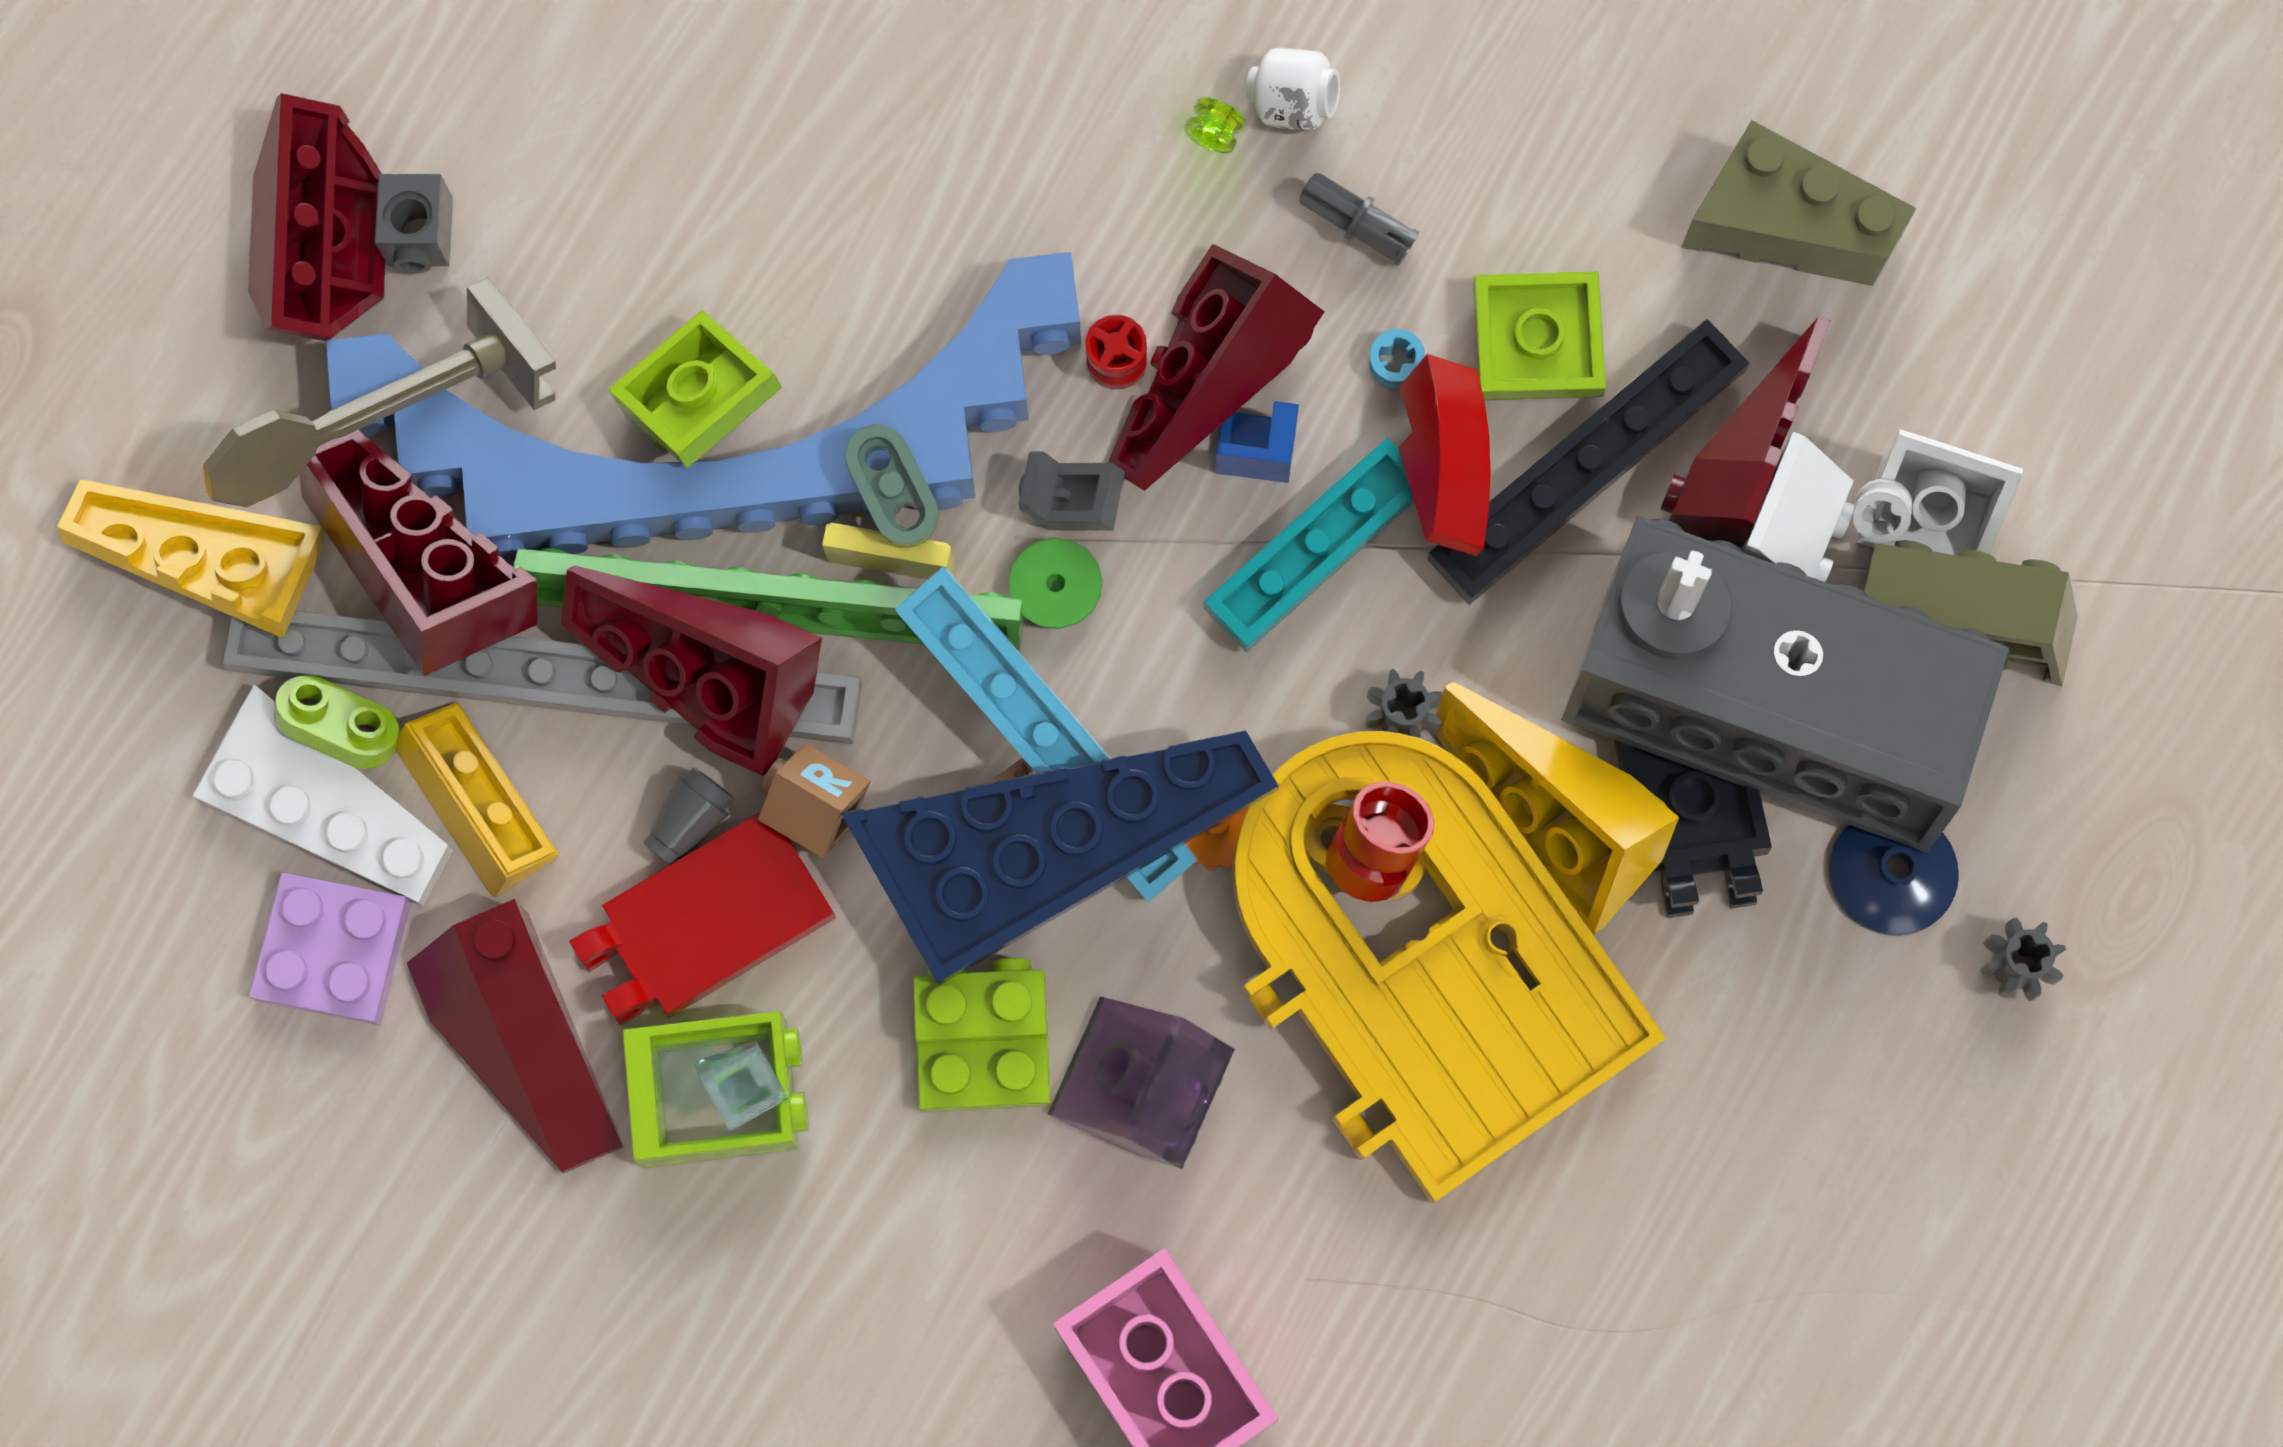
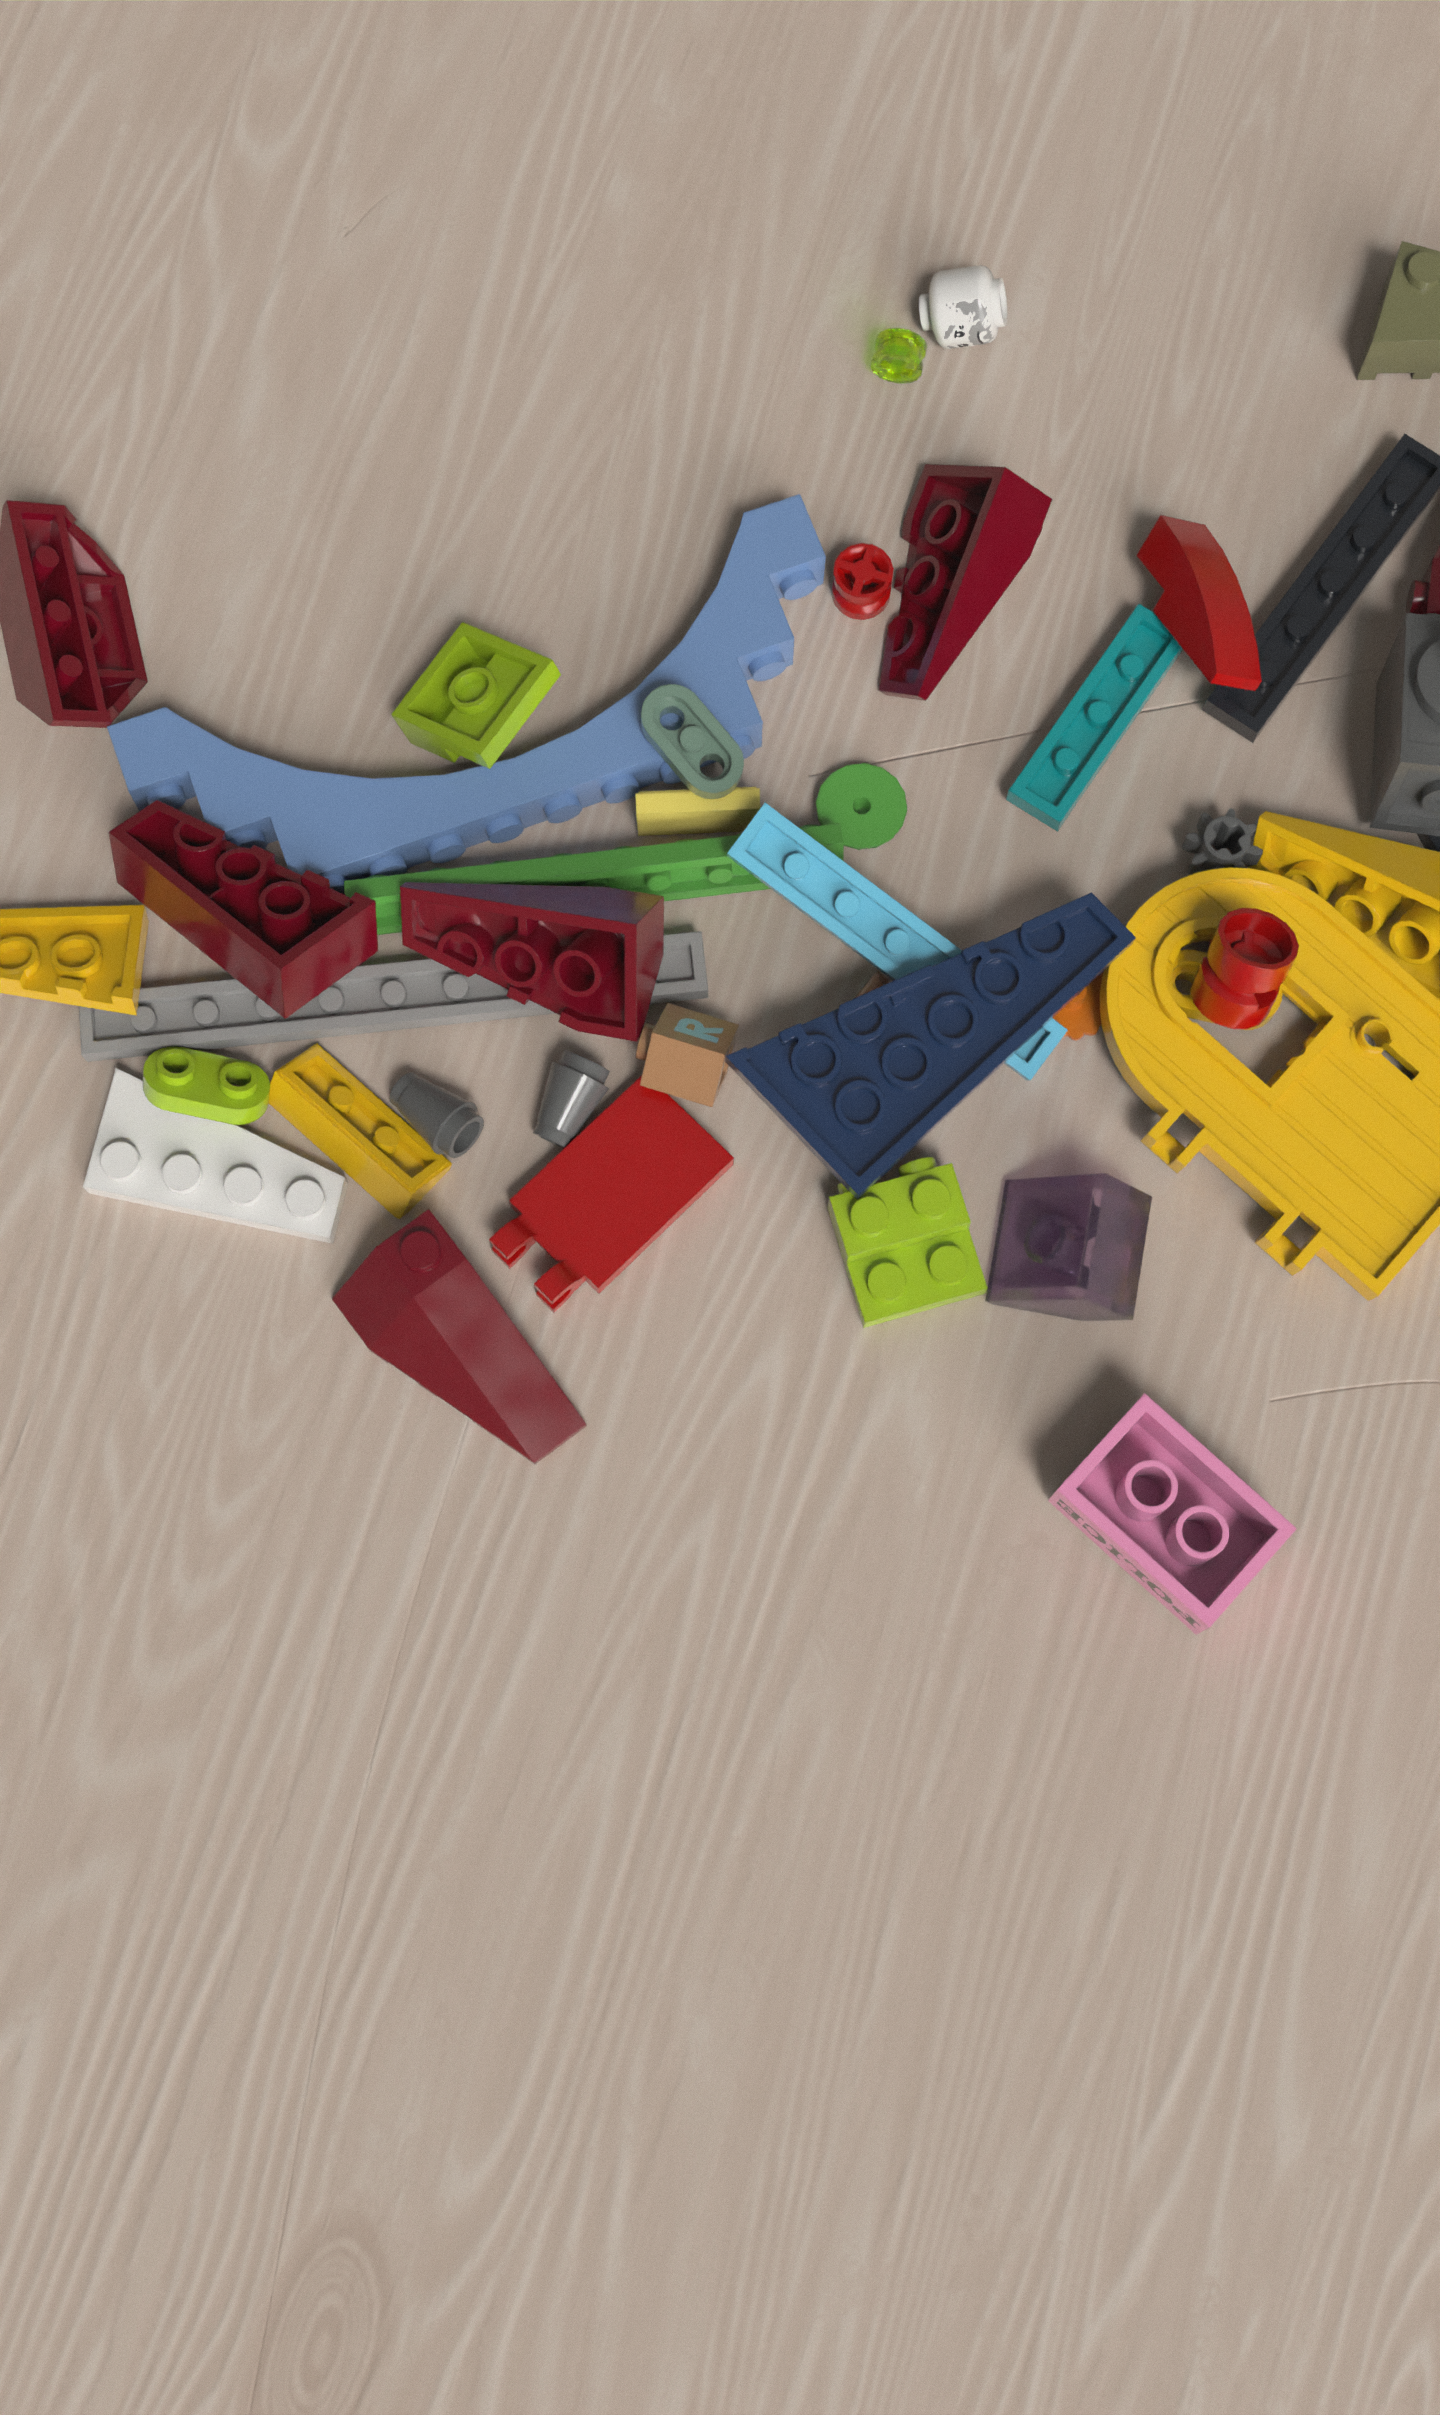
camera: 15 degrees left, 0 degrees up
(276, 446) = (91, 824): dark tan piece -> none
(330, 949) = (253, 1302): lavender plate -> none
(409, 198) = (154, 580): dark grey brick -> none
(554, 803) = (439, 1116): none -> dark grey cone
(646, 1087) = (722, 1300): lime window -> none
(740, 1083) = (694, 1332): clear light blue slope -> none
(1070, 493) = (857, 719): dark grey bracket -> none
(1258, 444) = (1020, 639): blue panel -> none
(1358, 217) = (1054, 412): dark grey axle -> none
(1384, 345) = (1128, 515): medium azure bush -> none
(1539, 335) = (1252, 482): lime plate -> none

